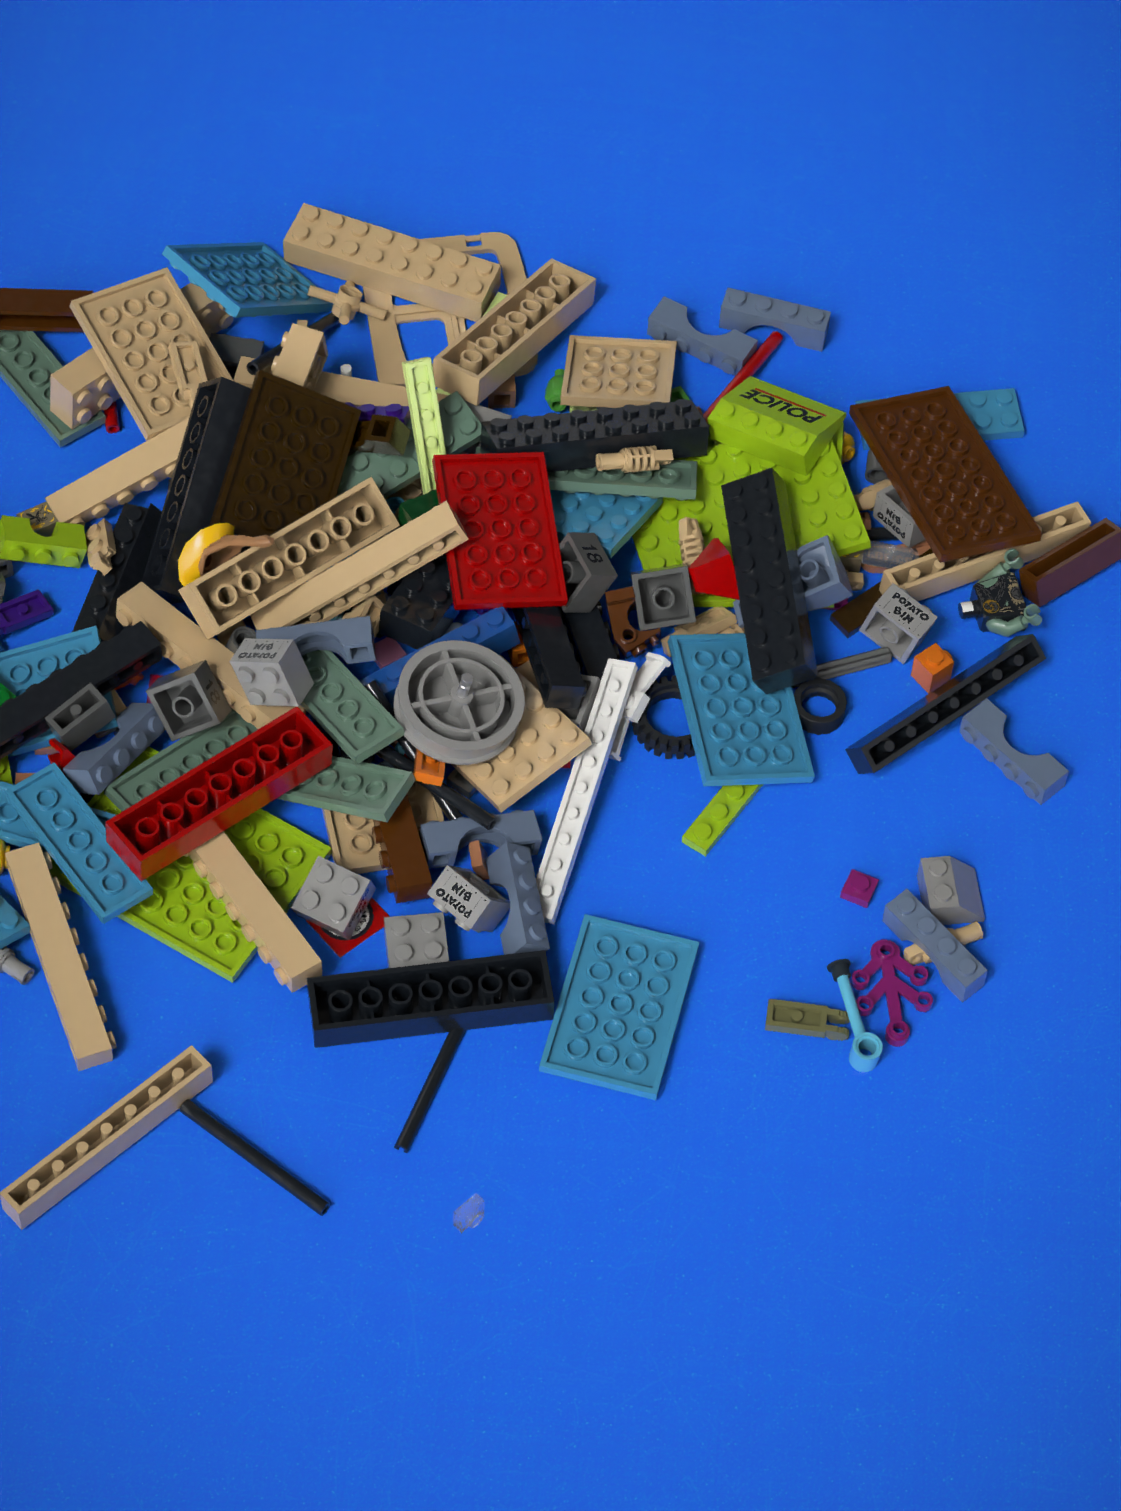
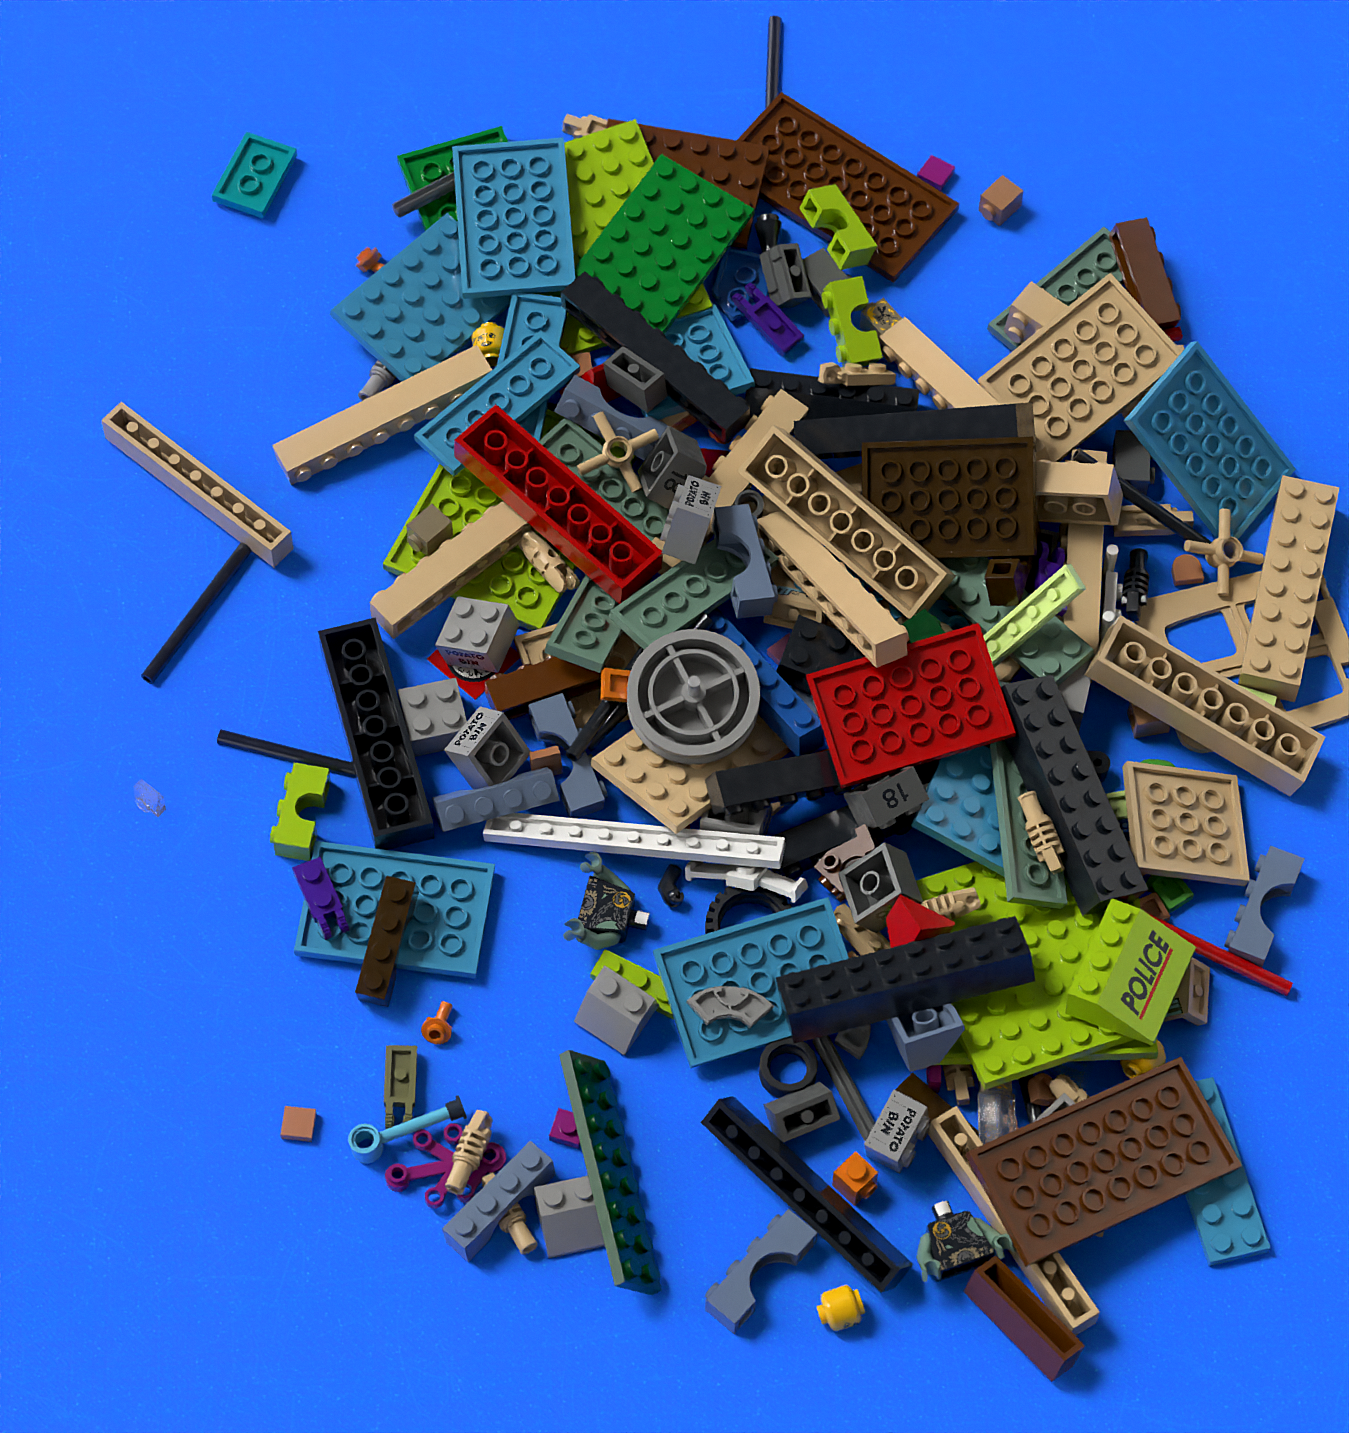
camera: 85 degrees right, 5 degrees up
(161, 742) = (628, 446): none -> tan bar
(187, 368) = (1062, 398): tan hinge -> none
(209, 924) = (429, 530): none -> dark tan brick
(212, 548) = (832, 447): hat -> none
(265, 827) = (548, 562): none -> tan hinge
(352, 339) = (1186, 570): none -> nougat tile
(371, 372) = (1135, 584): none -> black hinge
(525, 1087) = (305, 788): none -> lime arch
(606, 1062) = (320, 895): none -> dark purple hinge
(626, 779) = (668, 888): none -> black arm
(634, 992) = (383, 949): none -> dark brown arch
(644, 828) = (605, 909): none -> torso
(748, 985) = (437, 1029): none -> orange plate
(752, 828) = (615, 1010): none -> light grey slope
(762, 731) = (730, 1003): none -> light grey tile
(803, 323) = (1307, 983): sand blue arch -> none
(835, 1112) = (298, 1123): none -> nougat tile
(867, 697) = (801, 1112): none -> dark grey brick
(886, 961) = (469, 1151): none -> tan hinge
(925, 848) = (610, 1173): none -> plate
(1052, 695) = (841, 1308): none -> yellow head

